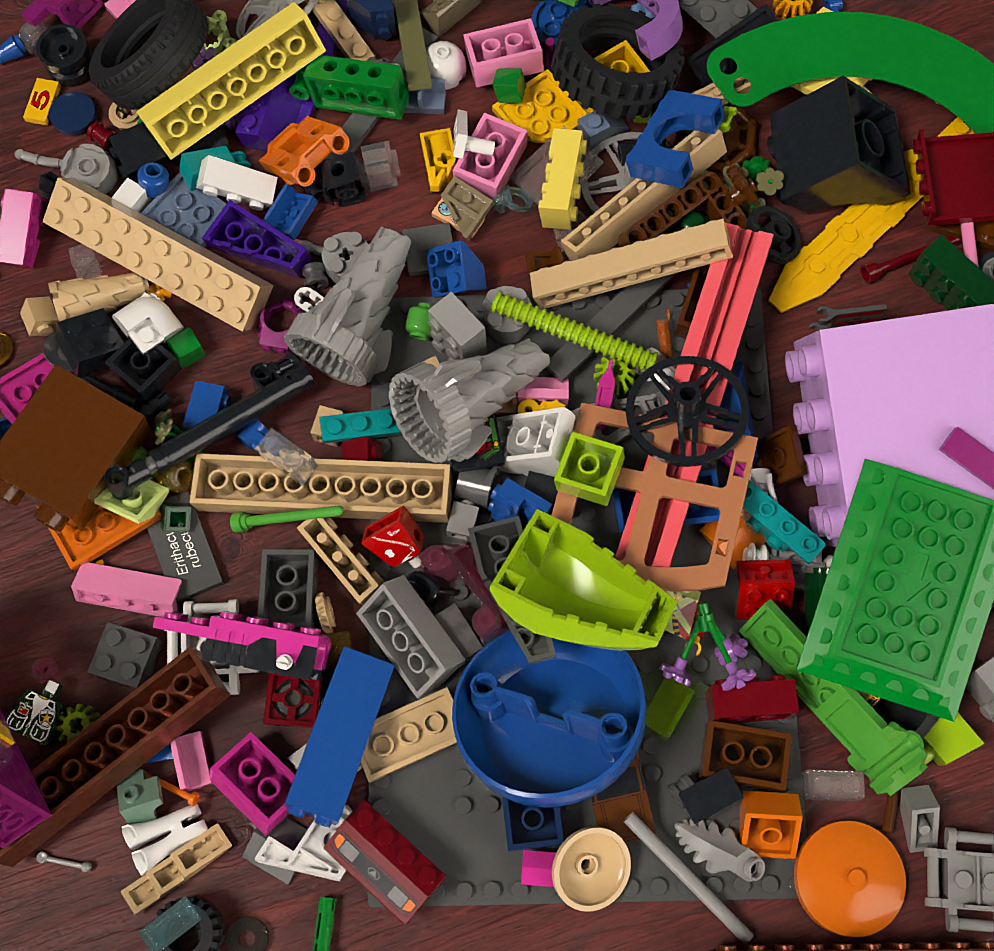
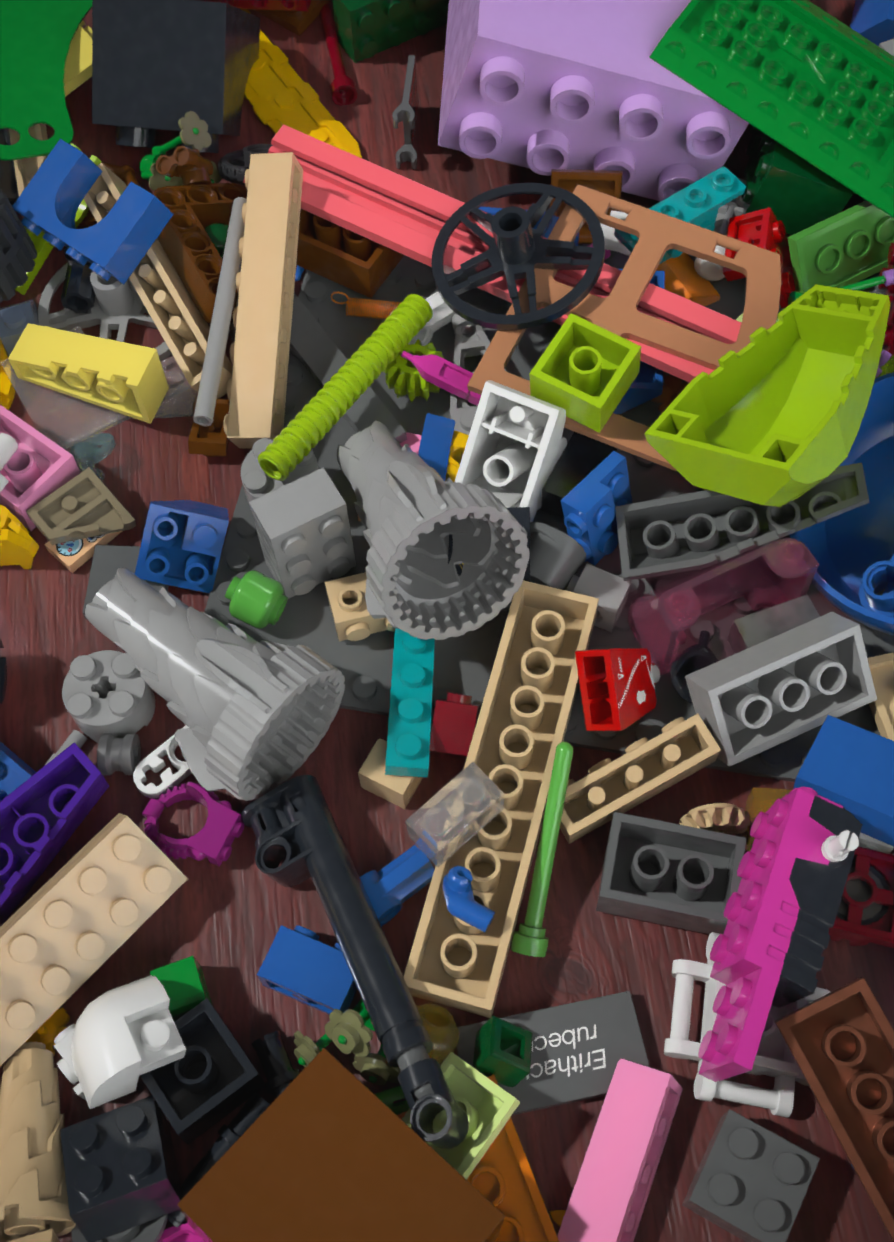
camera: 80 degrees left, 10 degrees down
(241, 473) = (461, 901): none -> blue arm
(544, 398) = (436, 442): none -> blue sticker
(602, 242) = (220, 319): none -> light grey piece

